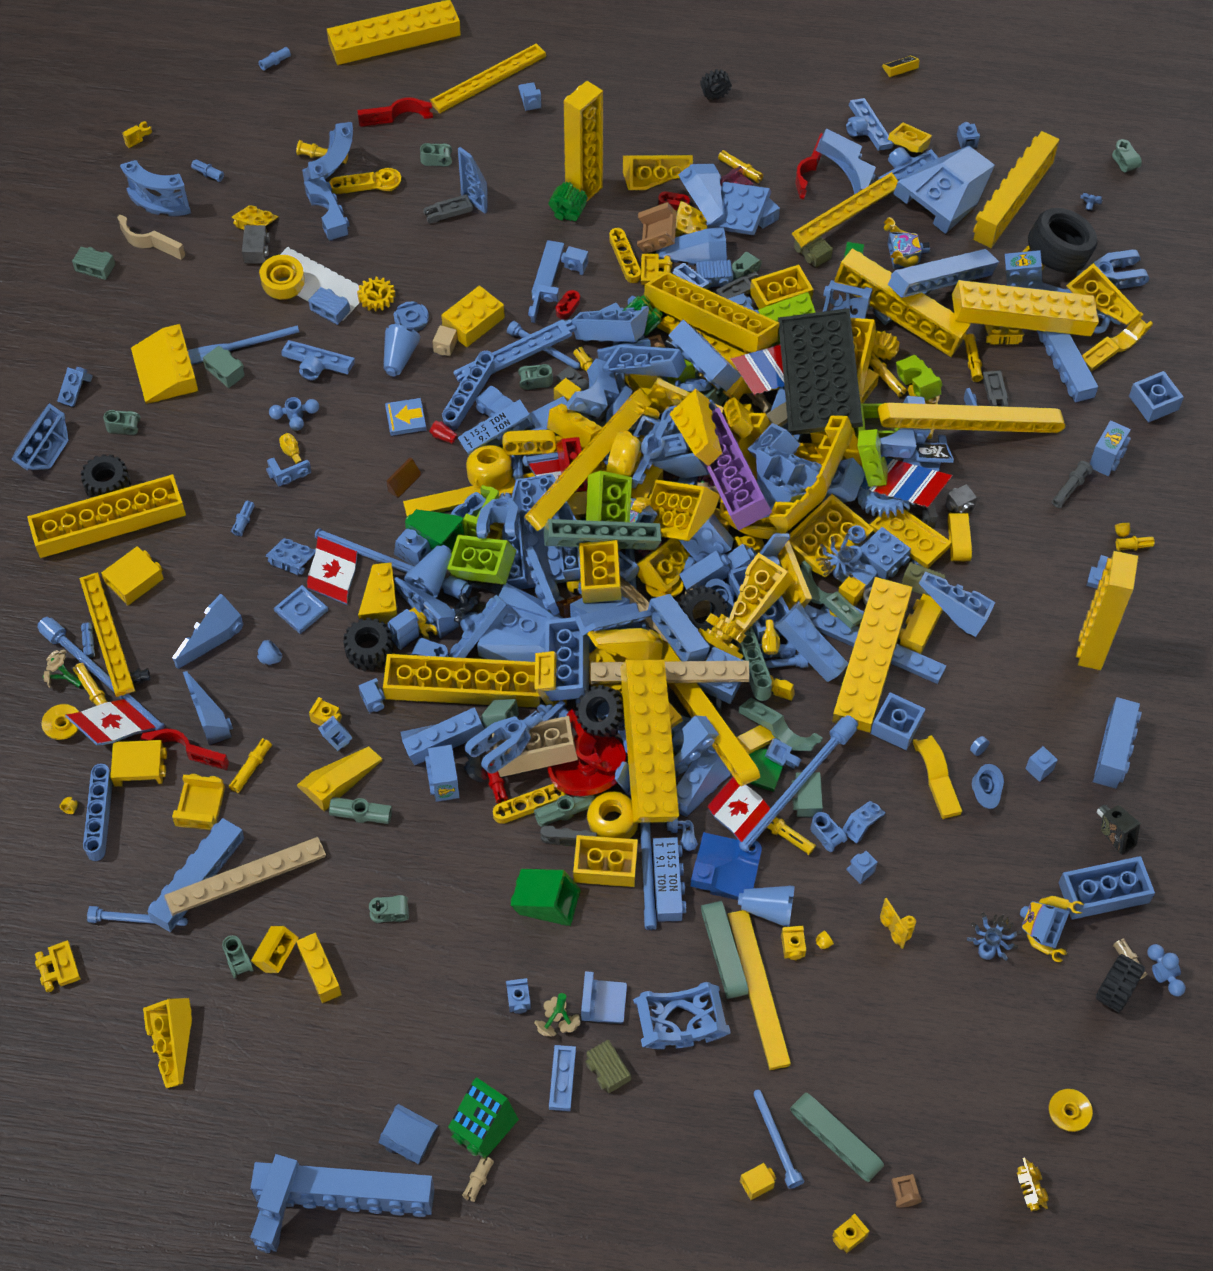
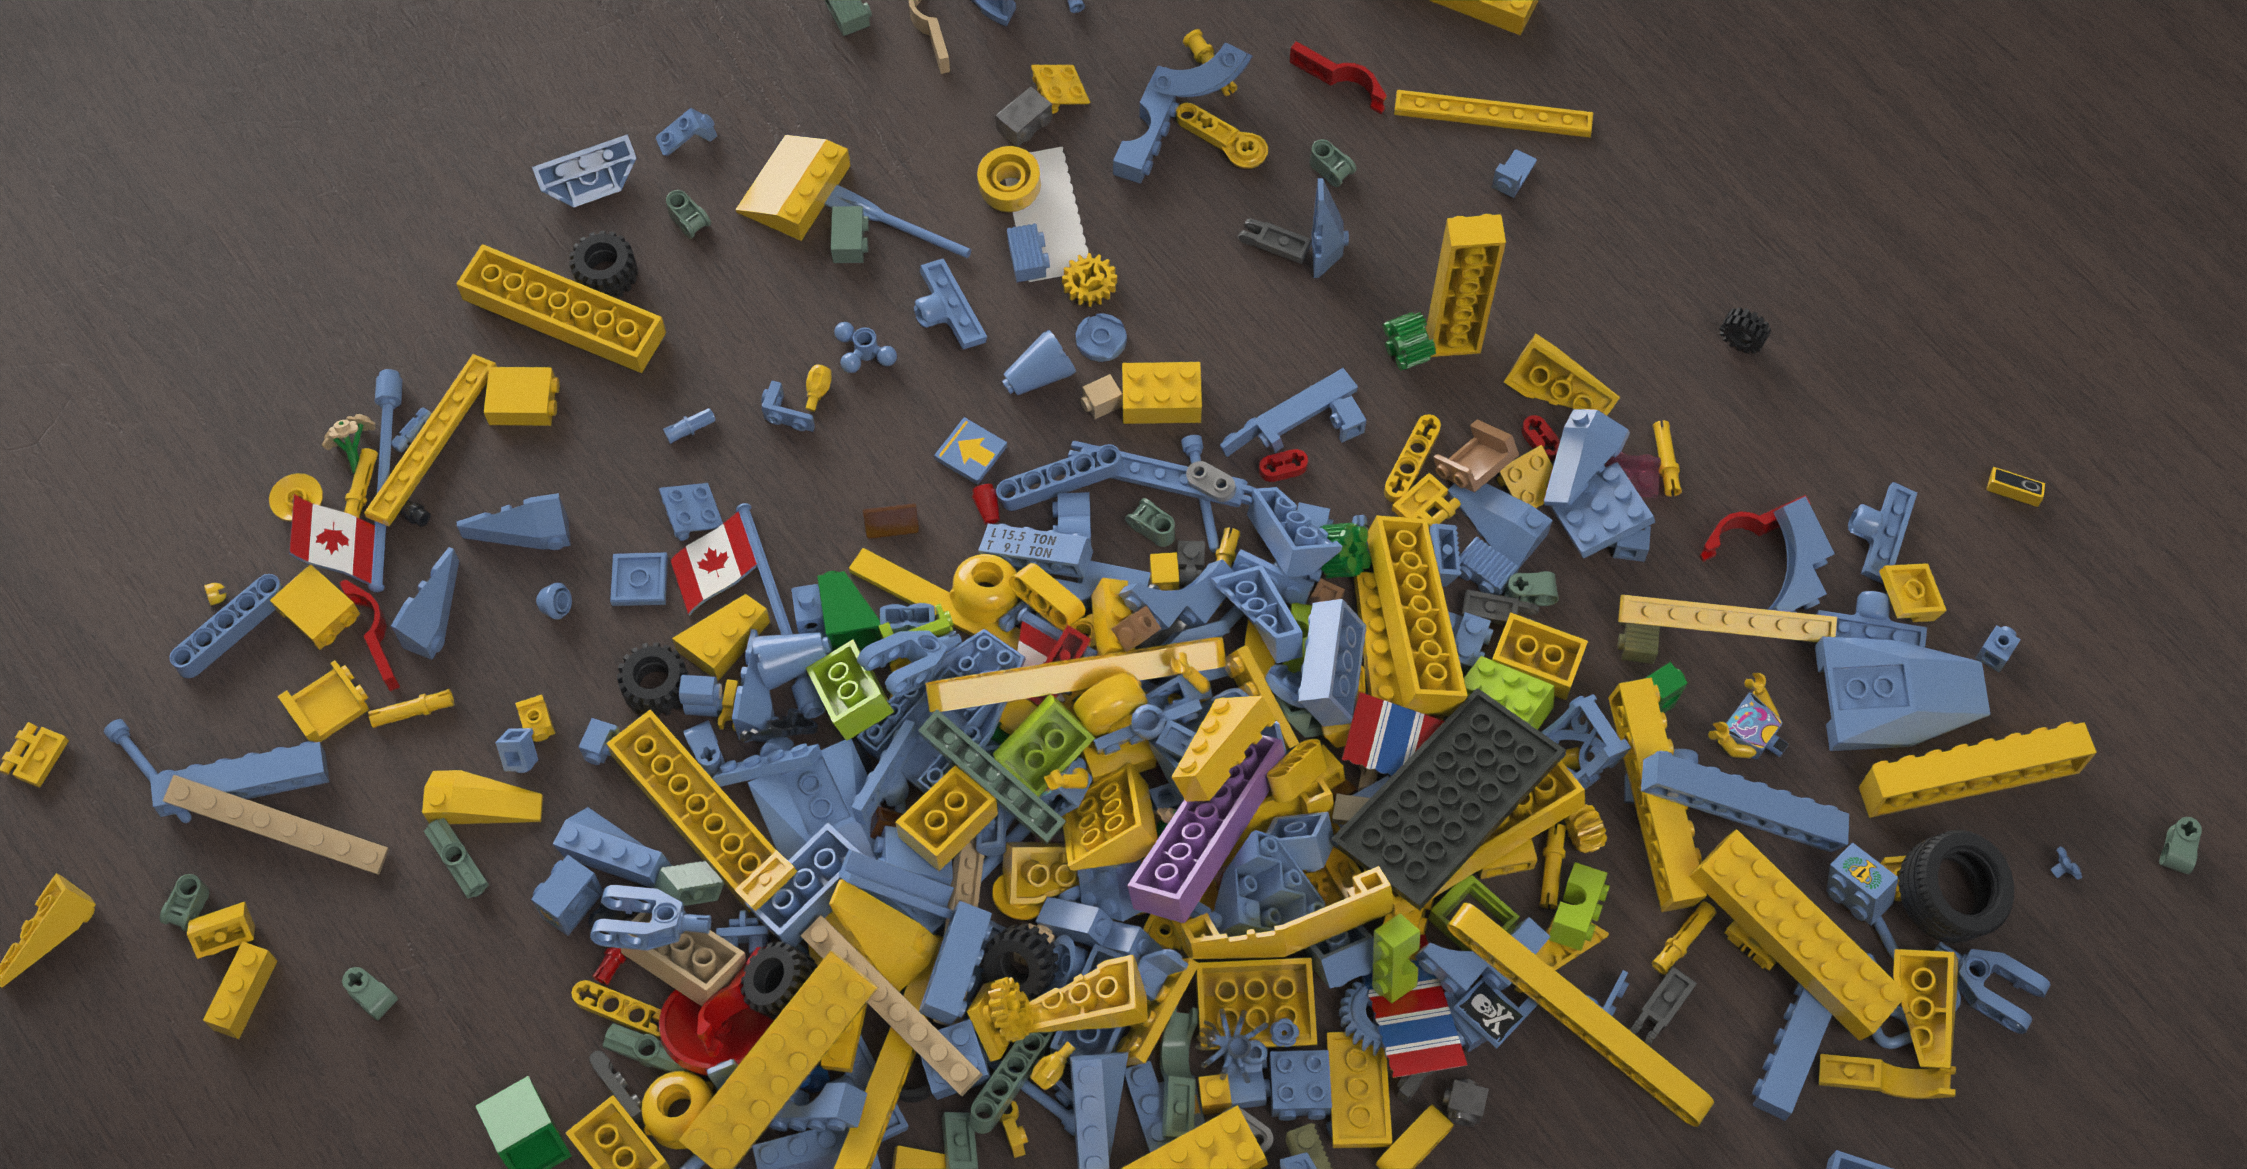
camera: 45 degrees right, 5 degrees up
(547, 333) = (1209, 481): none -> light grey plate
(595, 414) = (1136, 628): none -> medium nougat brick

